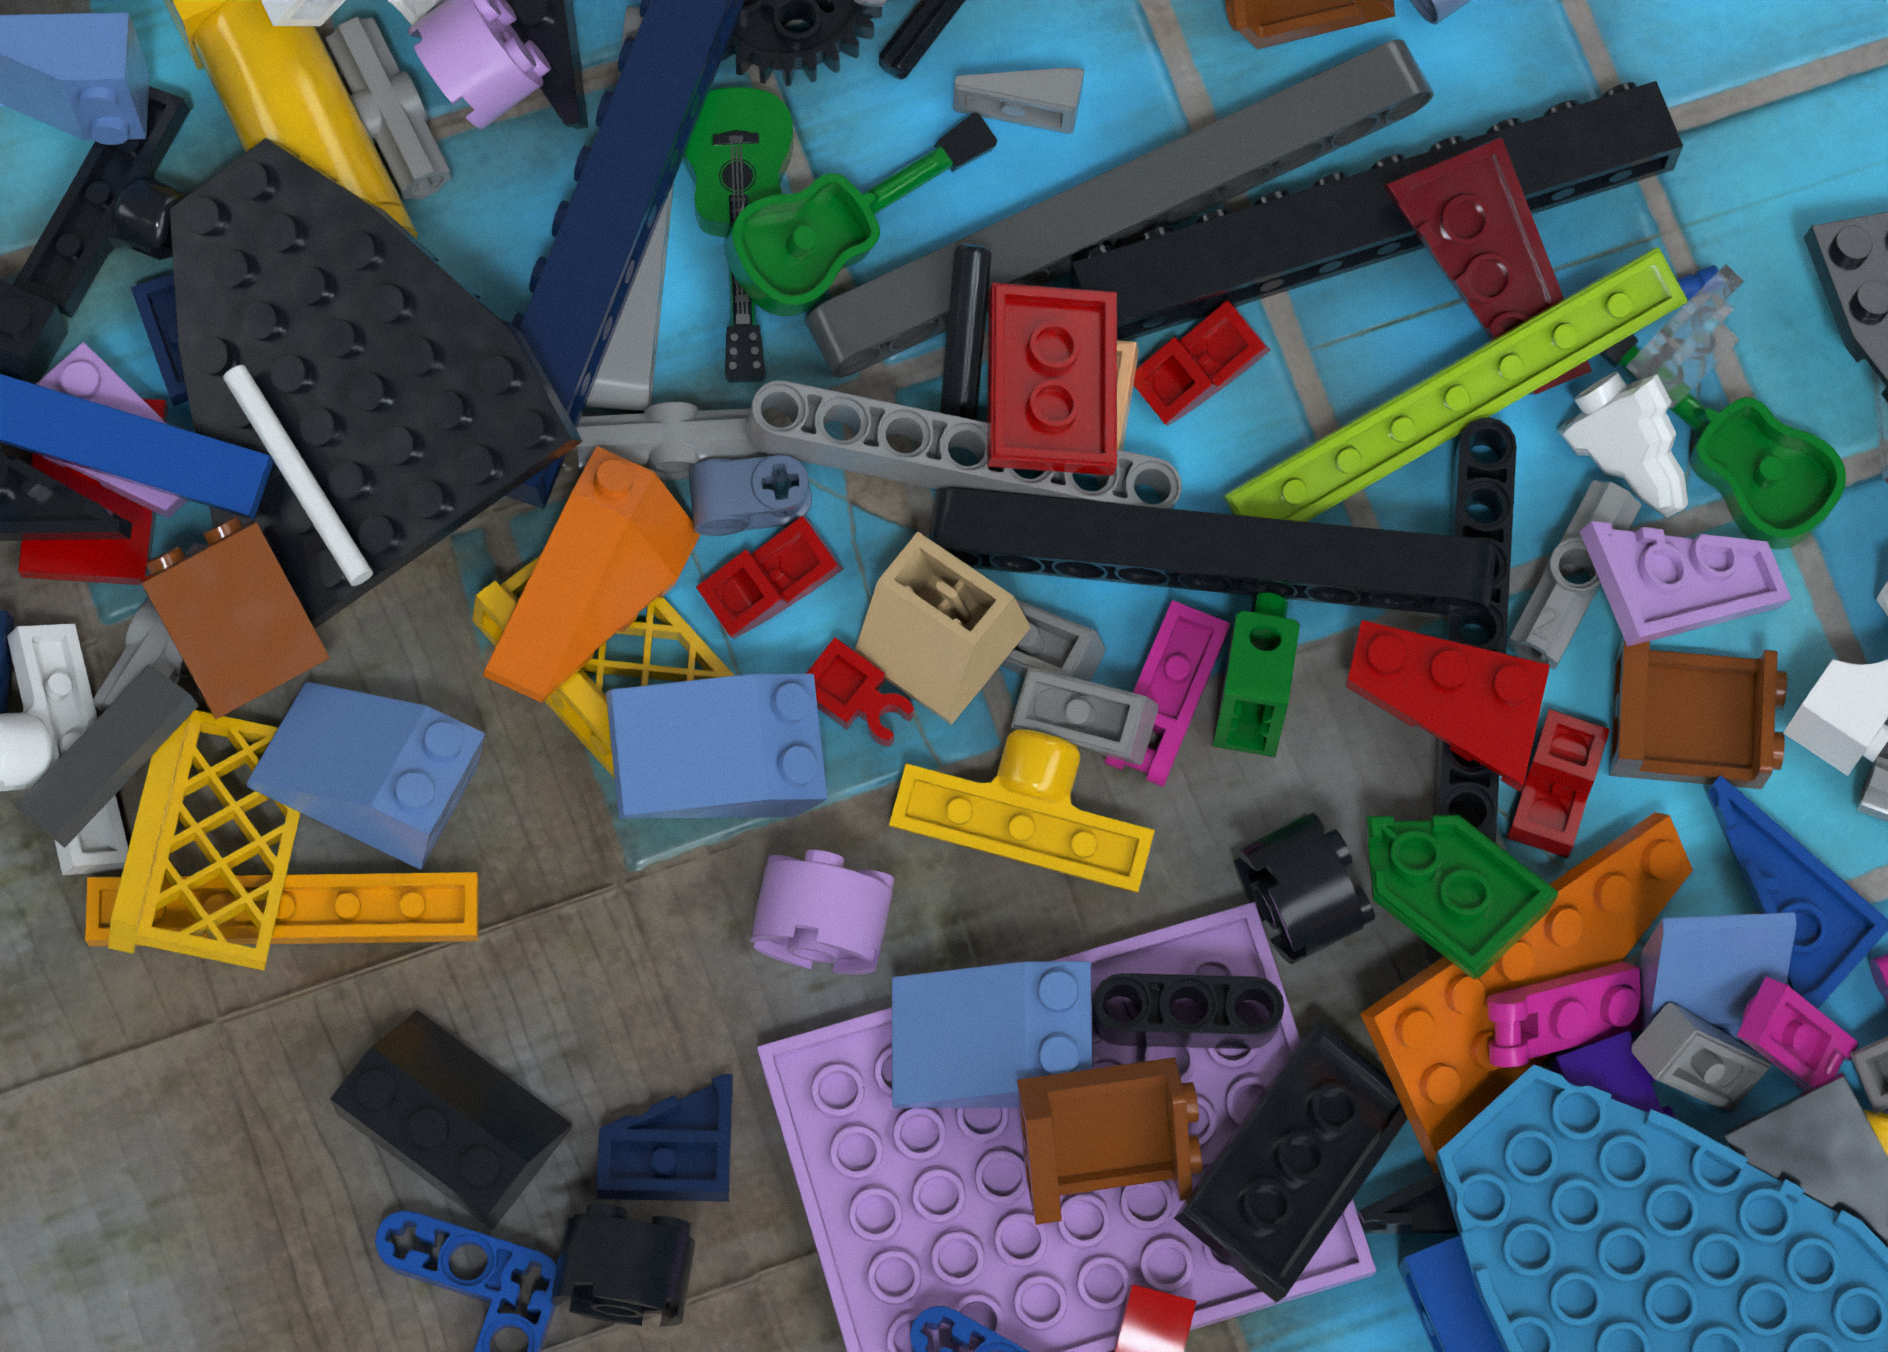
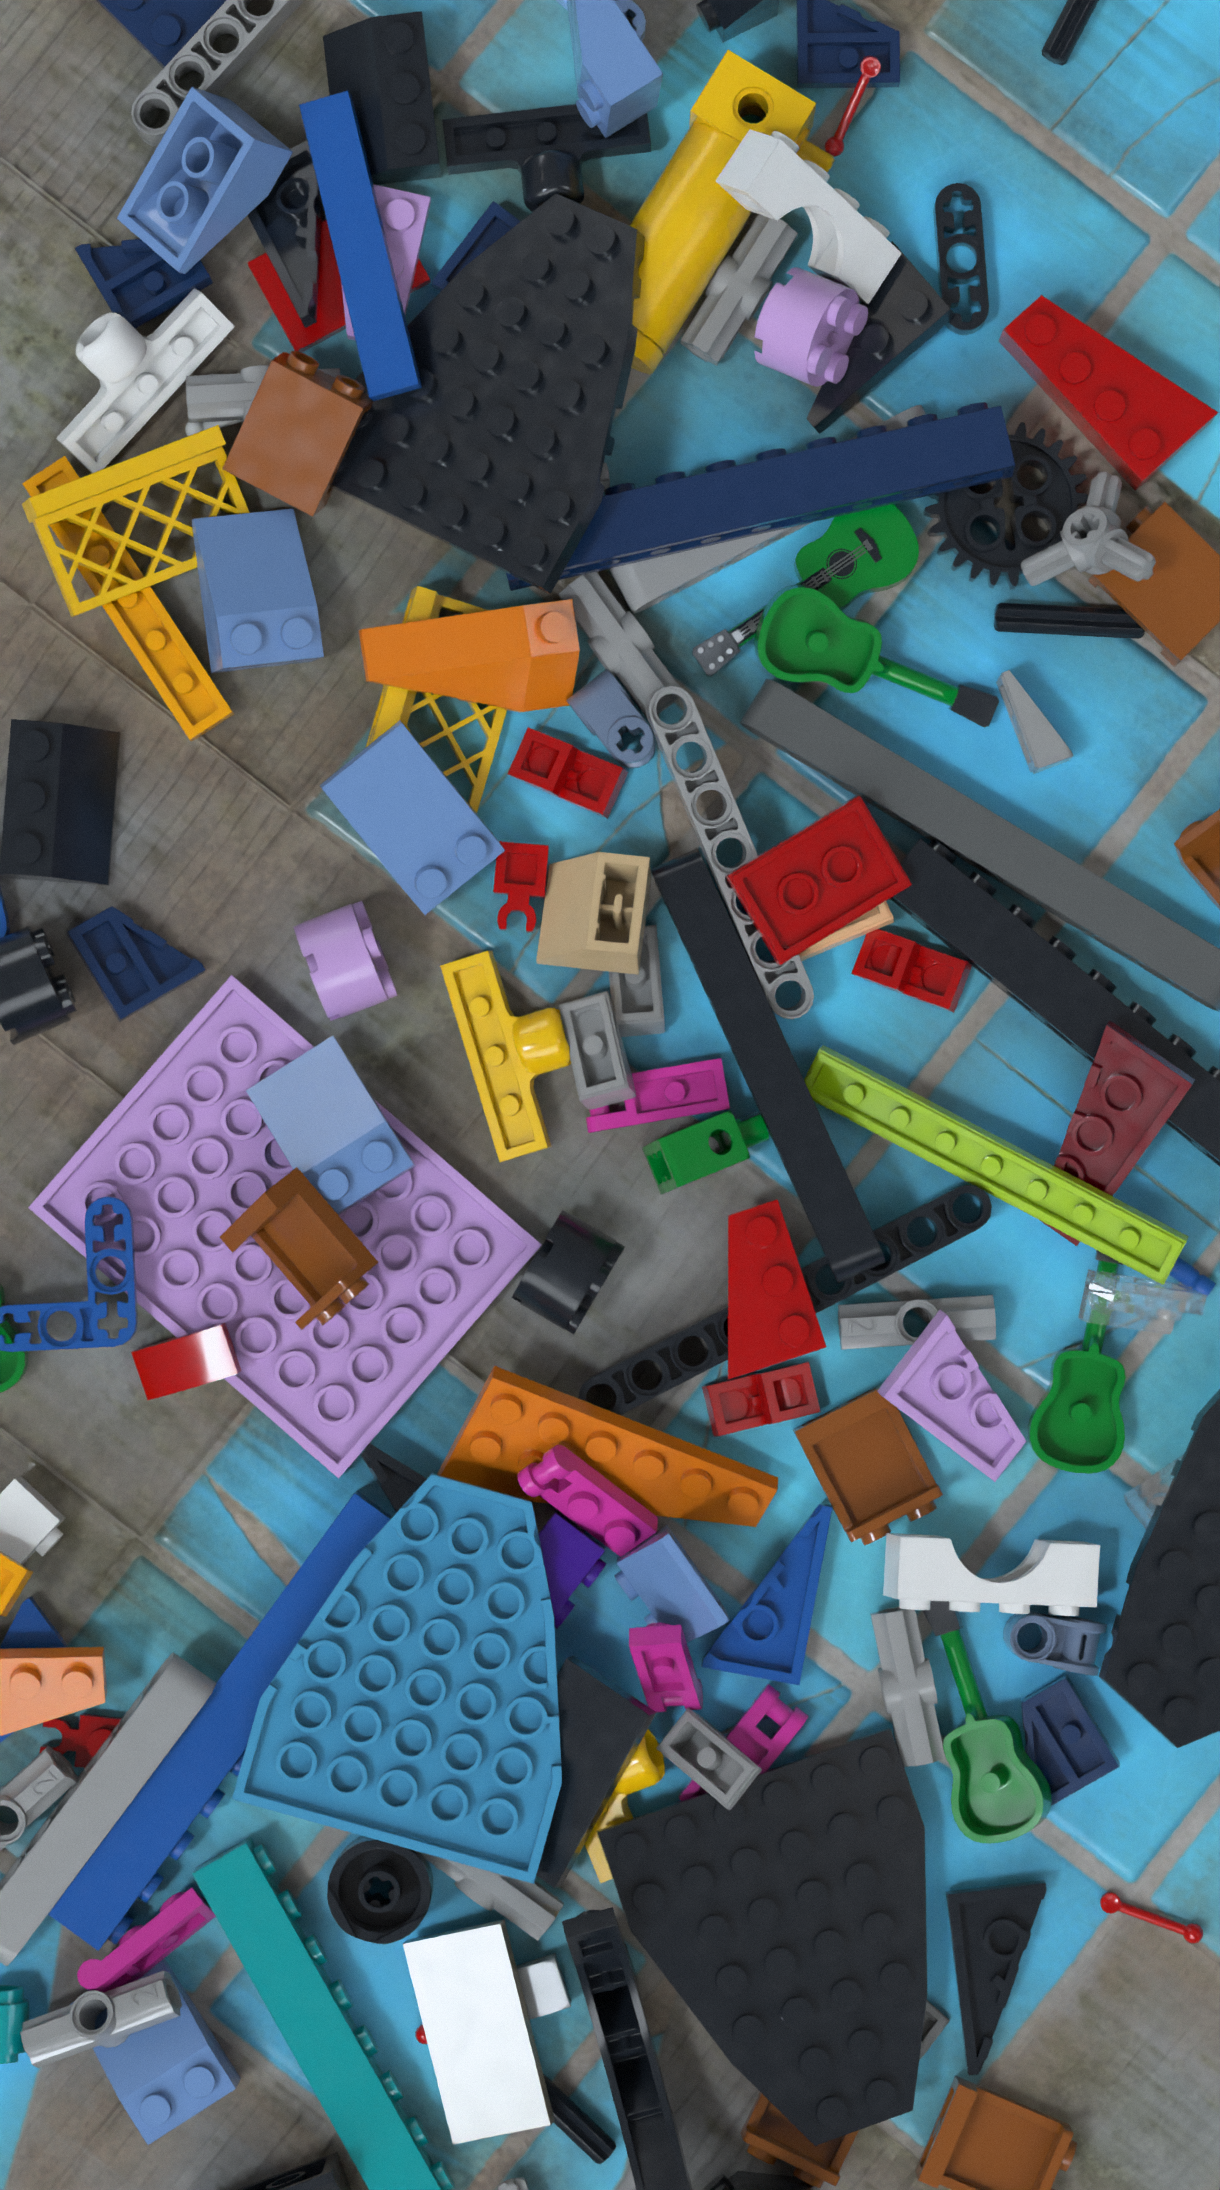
camera: 60 degrees right, 15 degrees up
(107, 755) = (146, 415): dark grey tile -> none
(298, 475) = (418, 411): white bar -> none
(966, 331) = (818, 798): black axle -> none
(1215, 995) = (407, 1232): black beam -> none
(1295, 1162) = (373, 1381): black tile -> none
(1454, 888) = (623, 1375): green tile -> none
(1630, 438) = (1040, 1301): white rock -> none
(1698, 1058) = (611, 1603): light grey slope -> none

